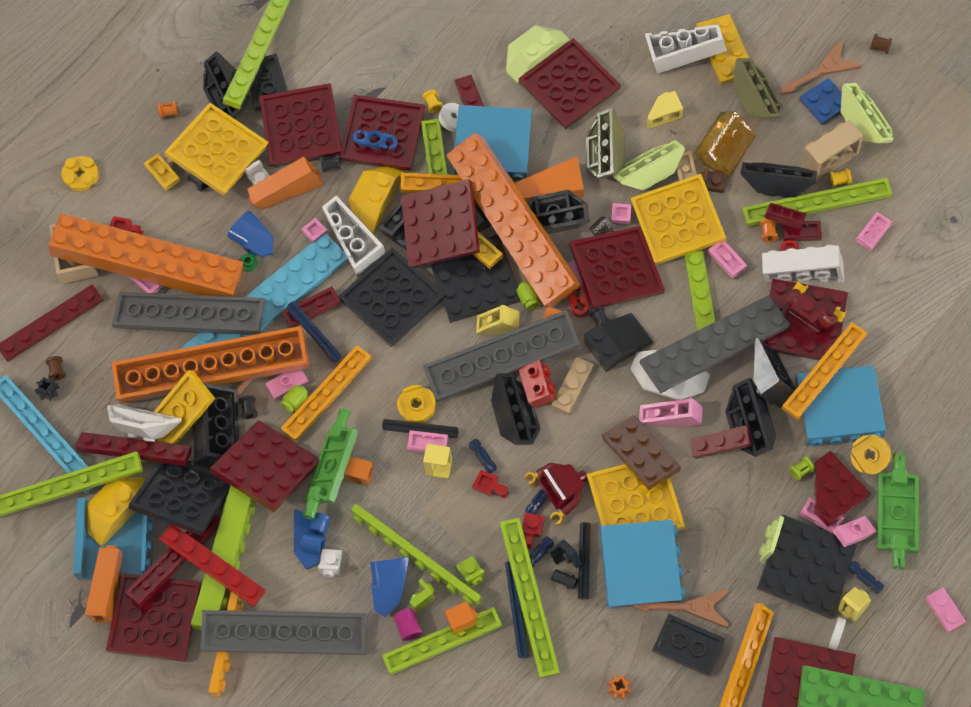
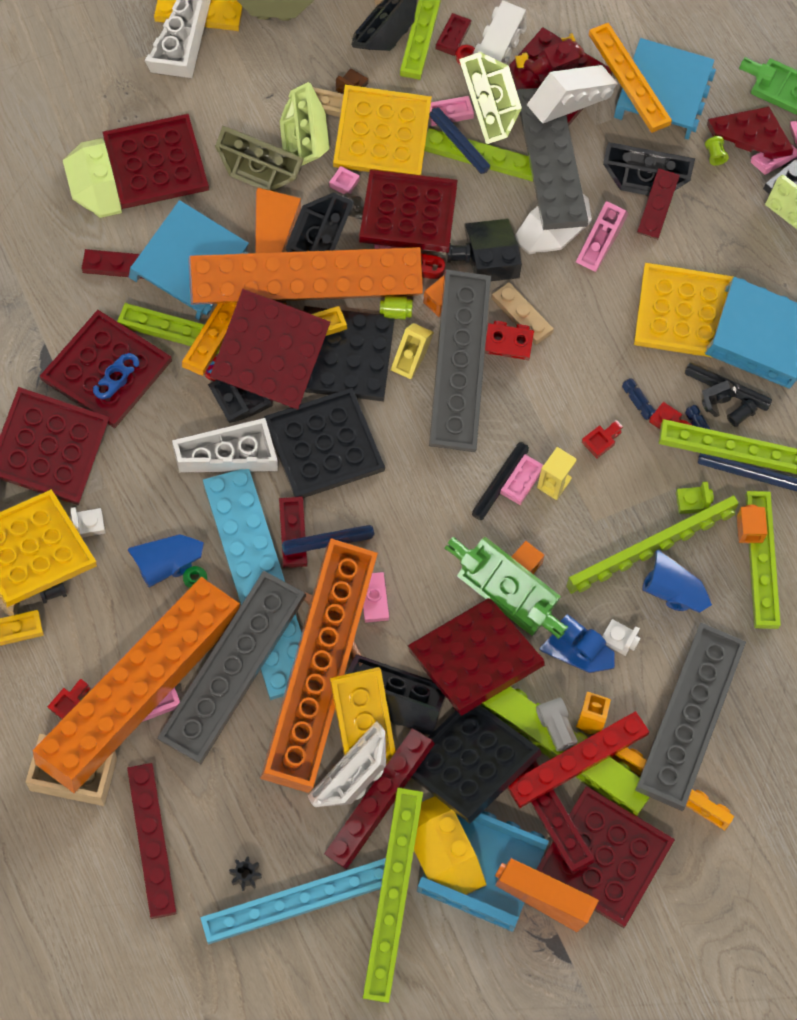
camera: 75 degrees left, 0 degrees up
(55, 367) = (221, 853): reddish brown bush -> none
(235, 535) = (555, 718): none -> light grey piece
(248, 407) = (386, 649): black bush -> none
(255, 562) = (593, 713): none -> light orange slope
(285, 184) = (118, 495): orange slope -> none
(294, 398) = (401, 594): lime brick -> none
(314, 230) = (194, 489): bright pink plate -> none
(326, 393) = (411, 559): light orange plate -> none
(330, 162) = (114, 437): black bush -> none
(374, 195) = (182, 405): yellow wedge -> none
(407, 624) = (731, 584): dark pink piece -> none
(421, 599) = (706, 560): lime bracket -> none
(422, 395) = (470, 484): yellow plate -> none
(433, 102) = (97, 300): yellow bush -> none
(446, 118) = (129, 291): white piece -> none
(482, 456) = (563, 432): dark blue axle -> none
(513, 413) = (532, 379): black wedge -> none
(561, 486) = (639, 368): dark red torso -> none
(641, 452) = (635, 279): reddish brown plate -> none
(665, 109) = (242, 87): light yellow slope -> none
(697, 274) = (459, 140): none -> dark blue axle
(725, 143) = (313, 53): clear yellow slope -> none
(746, 277) = (492, 95): none -> yellowish green wedge
(769, 231) = (437, 61): orange bush -> none
(771, 375) = (618, 126): black slope -> none
(780, 331) = (571, 91): none -> white wedge
(785, 215) = (434, 36): dark red plate -> none
(868, 465) = (721, 90): yellow plate -> none

